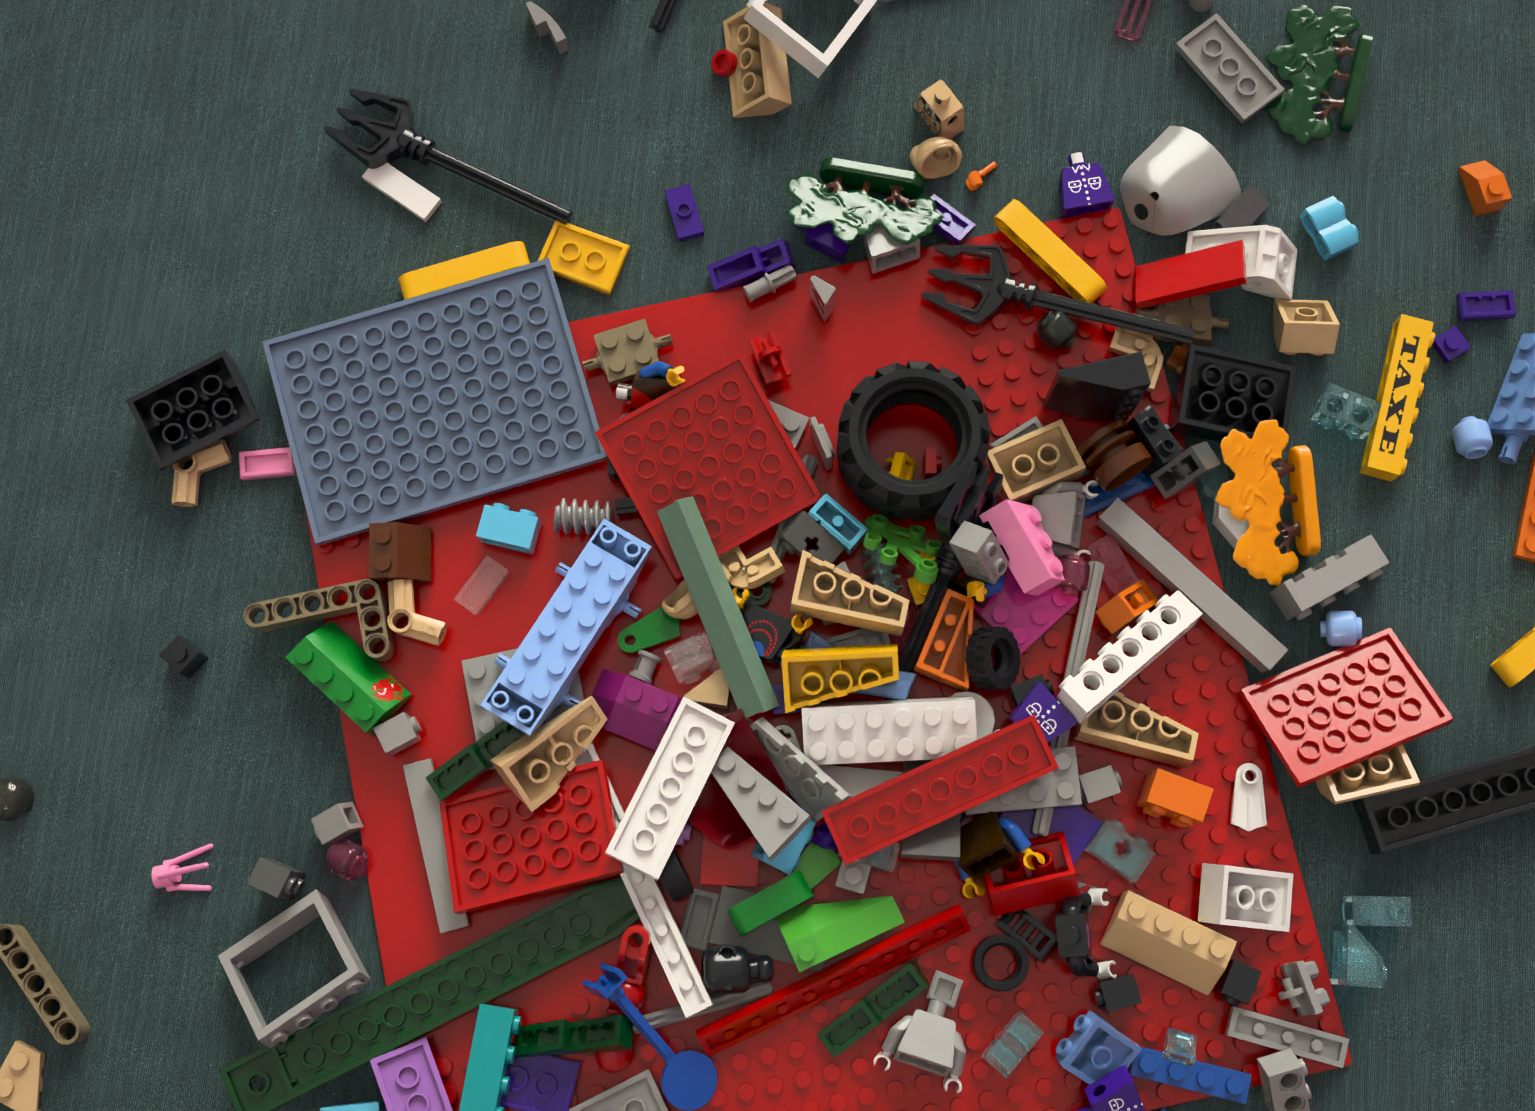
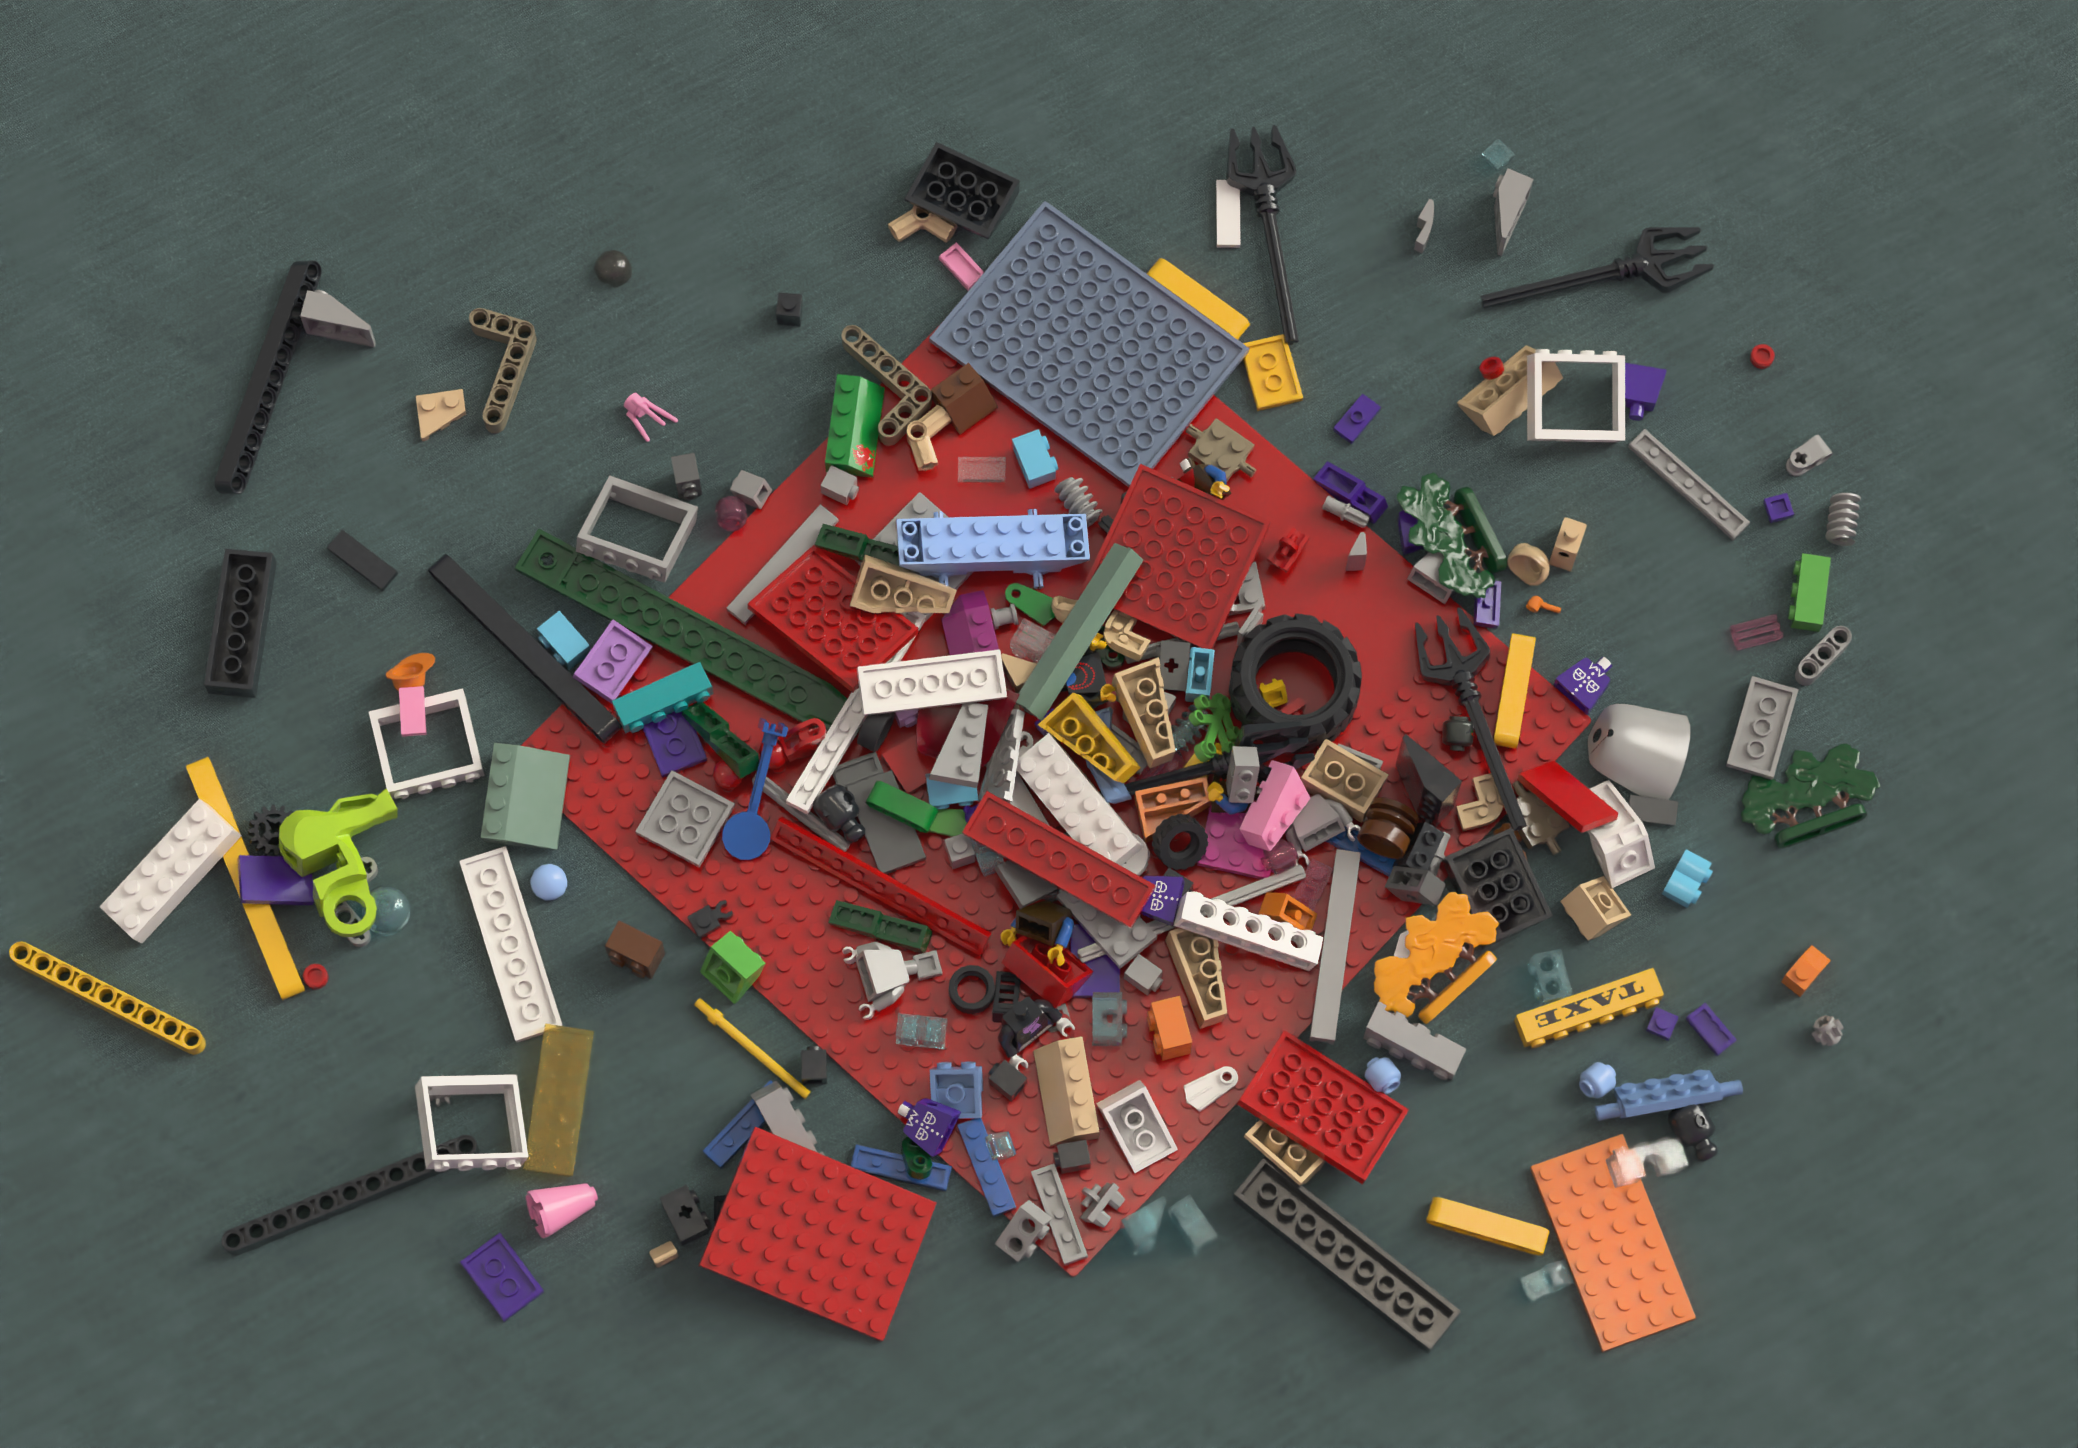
camera: 50 degrees right, 5 degrees down
(831, 928) = (911, 858): bright green wedge -> none

